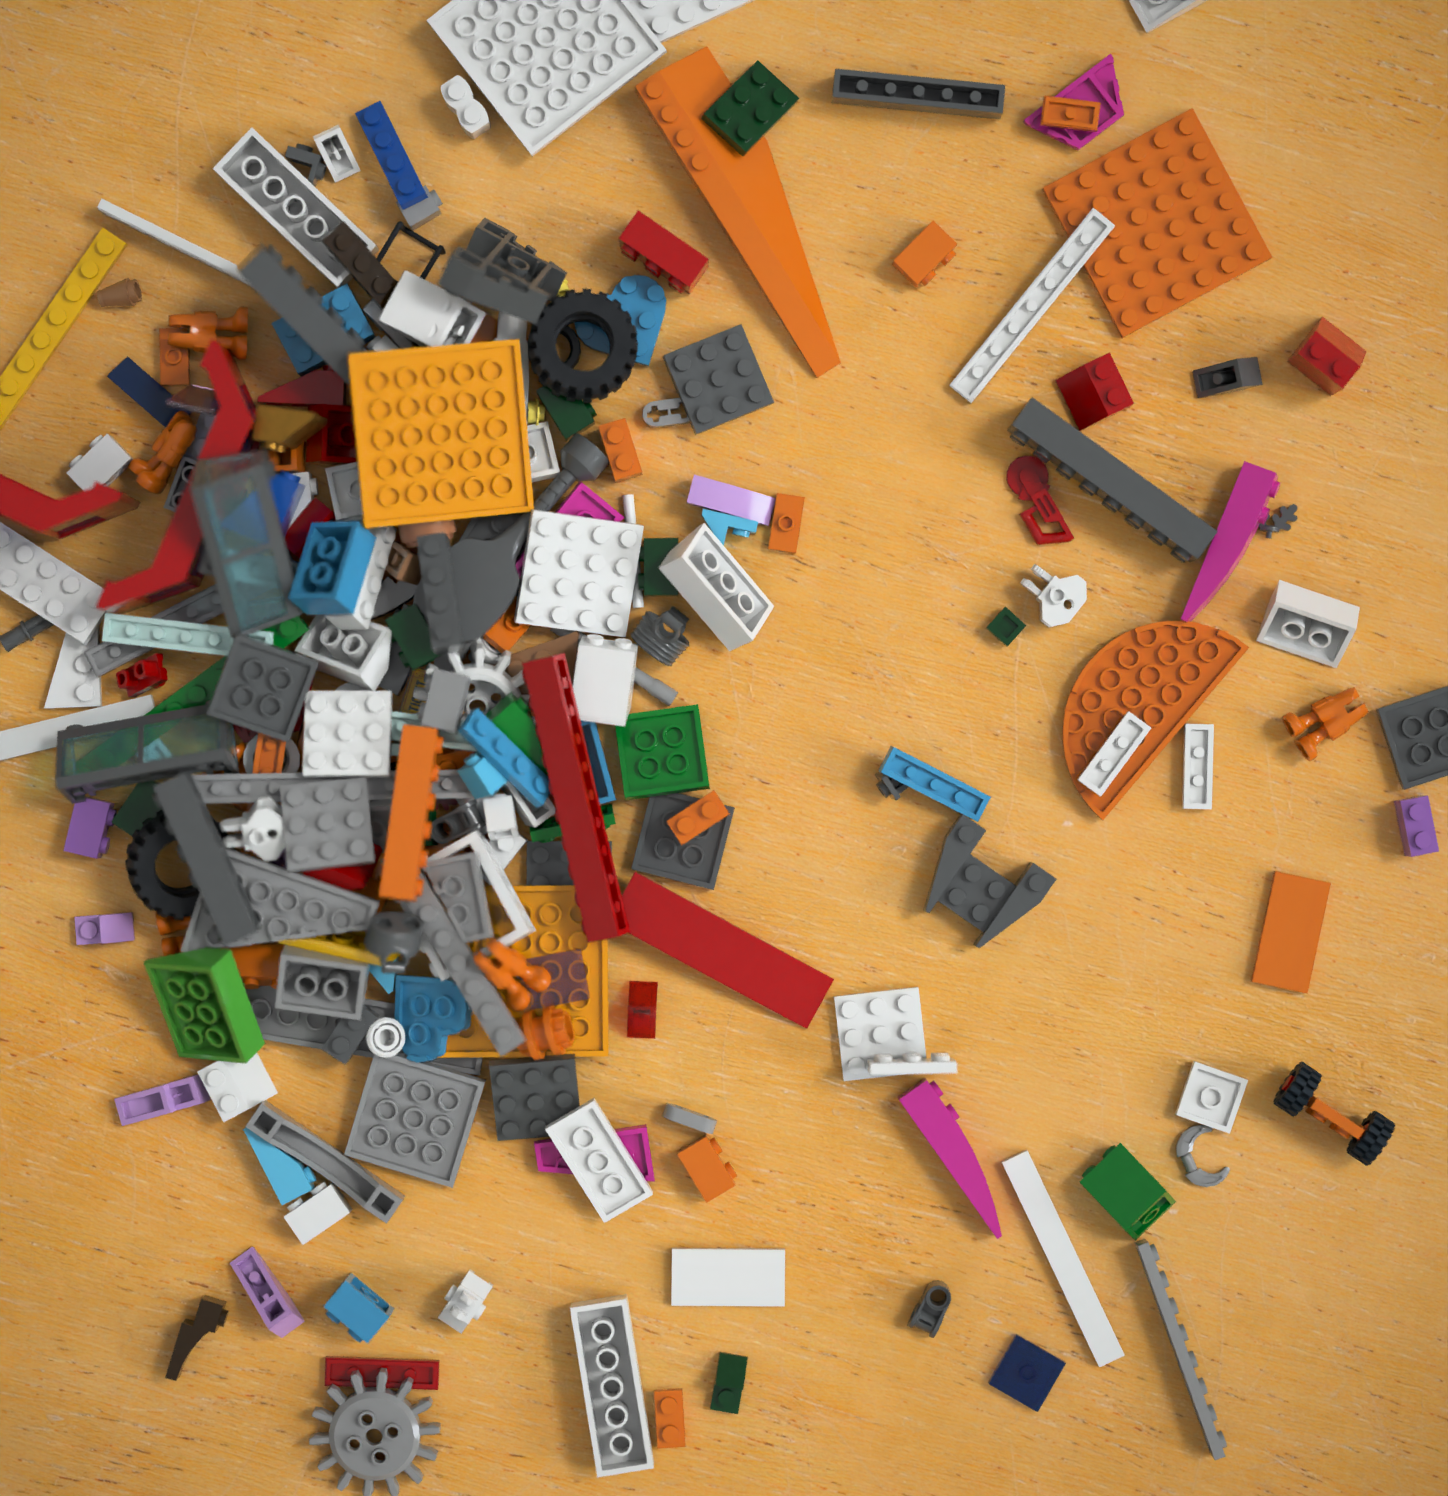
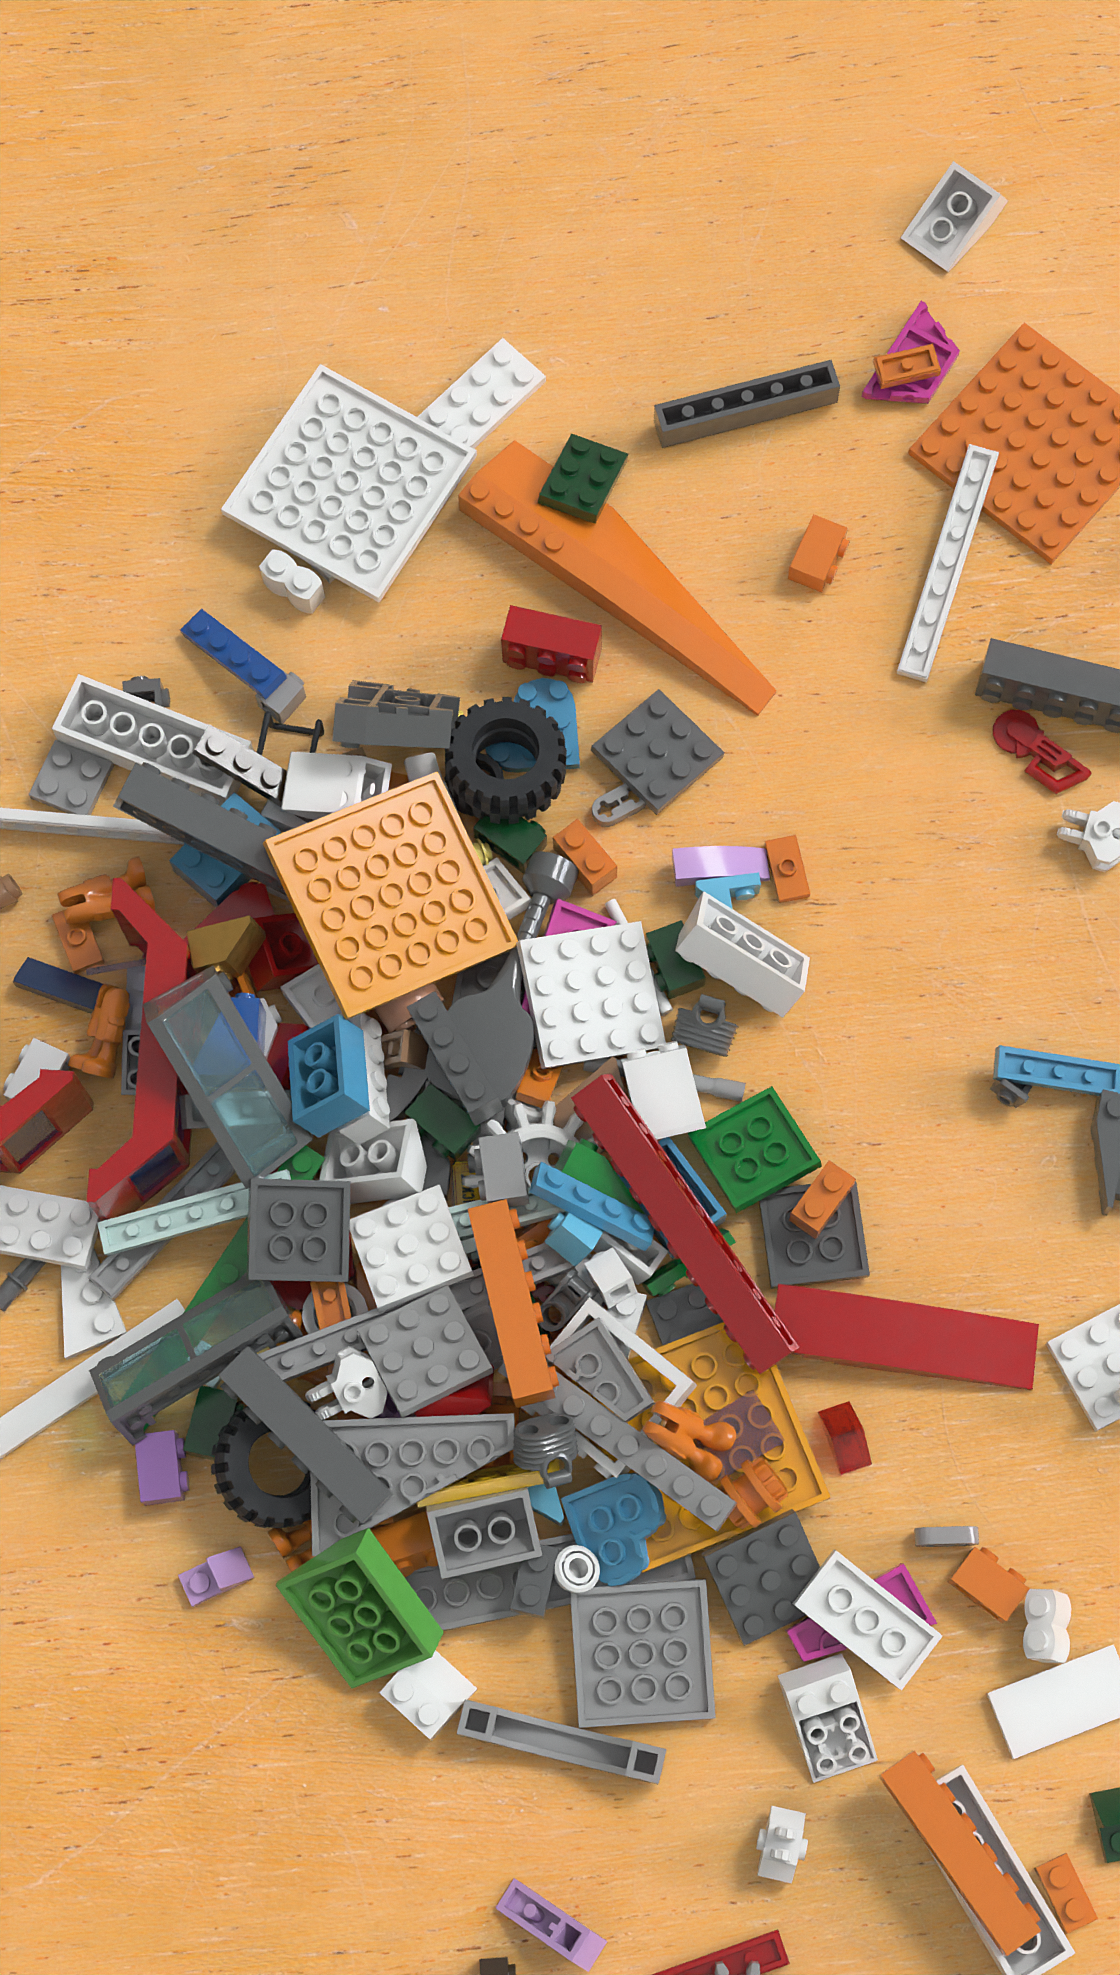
camera: 20 degrees left, 15 degrees down
(143, 676) = (164, 1277): red hips -> none
(161, 1099) = (349, 1745): lavender slope -> none
(216, 213) = (71, 779): none -> light grey plate
(284, 1172) = (517, 1772): medium azure slope -> none
(317, 1212) = (573, 1807): white brick -> none
(336, 153) = (174, 672): white slope -> none
(358, 1309) = (664, 1899): dark azure brick -> none
(540, 1219) = (828, 1717): none -> white slope
(594, 1363) = (960, 1853): none -> orange brick
(740, 1212) = (1046, 1632): none -> white brick
(1006, 626) = (1060, 886): dark green plate -> none
(1094, 391) = (1049, 618): red slope -> none

